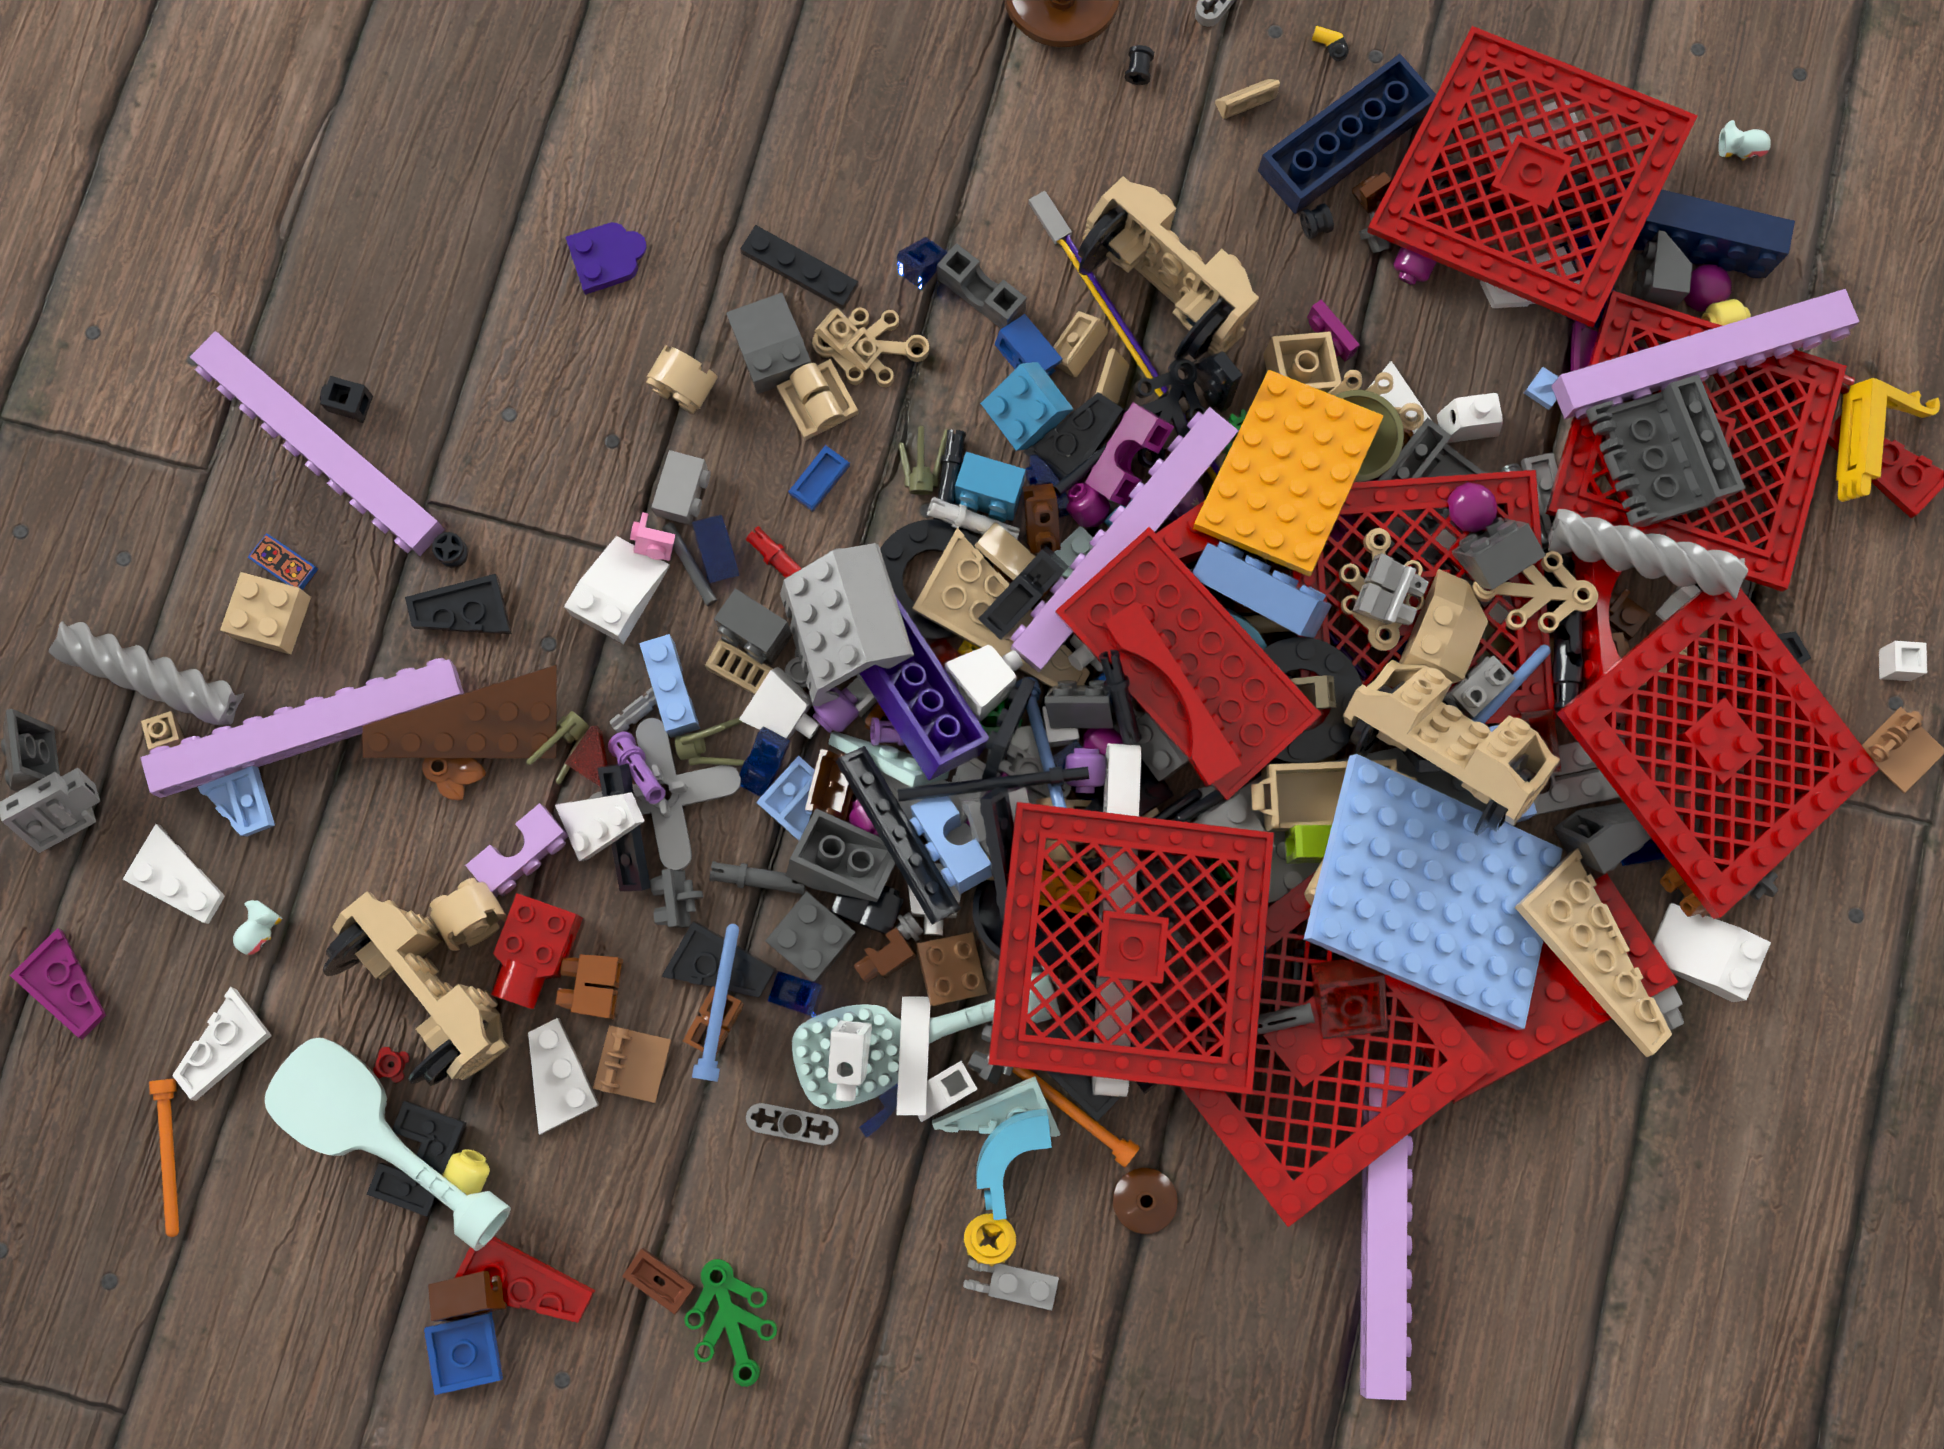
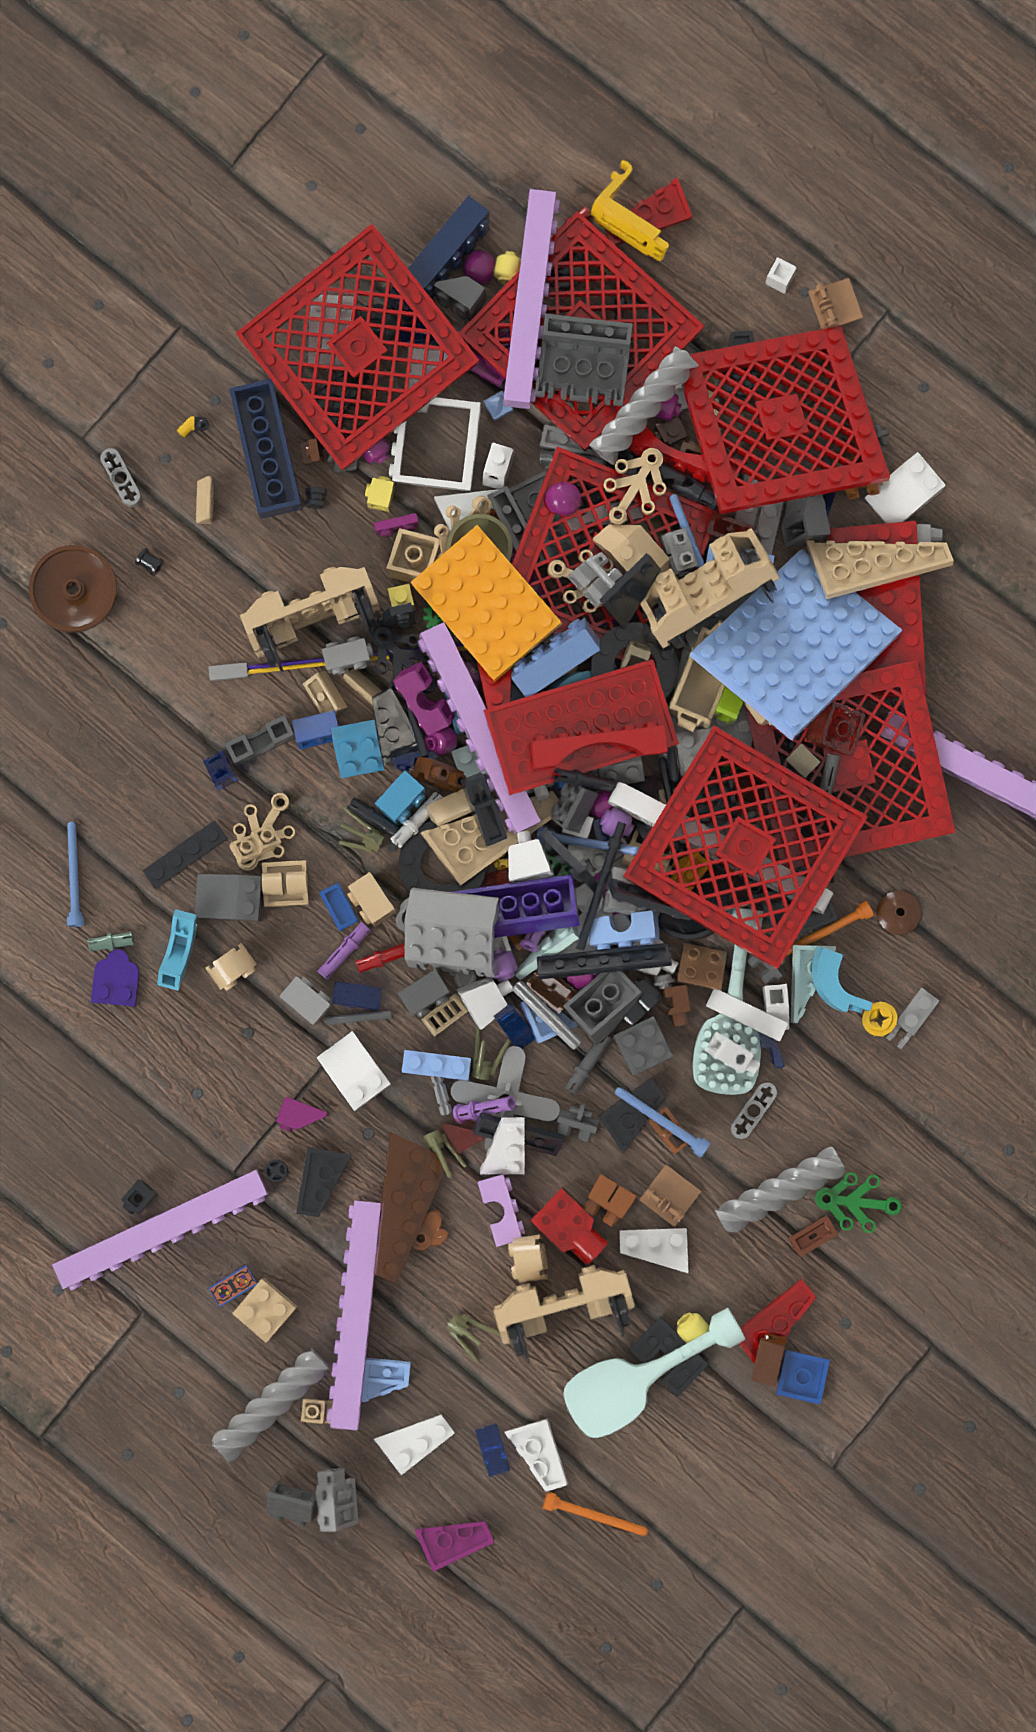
camera: 60 degrees left, 5 degrees up
(200, 982) = (492, 1450): none -> clear blue slope
(256, 930) = (476, 1401): light aqua animal -> none
(342, 866) = (459, 1326): none -> olive plant
(382, 1067) = (607, 1349): red plate -> none
(532, 543) = (298, 1115): none -> magenta slope
(650, 227) = (110, 941): none -> sand green pin
(651, 542) = (334, 1036): bright pink bracket -> none
(662, 173) = (75, 916): none -> medium blue piece
(673, 311) = (178, 950): none -> medium azure arch
(692, 1204) = (775, 1192): none -> light grey piece
(759, 506) = (345, 949): none -> medium lavender pin
(796, 795) = (547, 1015): none -> light grey axle
(796, 994) = (673, 1072): clear blue slope -> none
(843, 508) = (371, 899): none -> tan brick
(1138, 341) = (347, 655): none -> light grey brick
(1251, 379) = (401, 595): none -> light yellow brick
(1284, 975) = (802, 760): none -> dark tan panel
(1361, 295) = (380, 493): none -> light yellow brick
(1397, 642) = (630, 590): none -> black wing
(1468, 377) = (466, 484): none -> white window
(1499, 552) = (602, 498): dark grey slope -> none
(1656, 594) = (669, 408): none -> magenta head
(1745, 144) = (394, 192): light aqua animal -> none

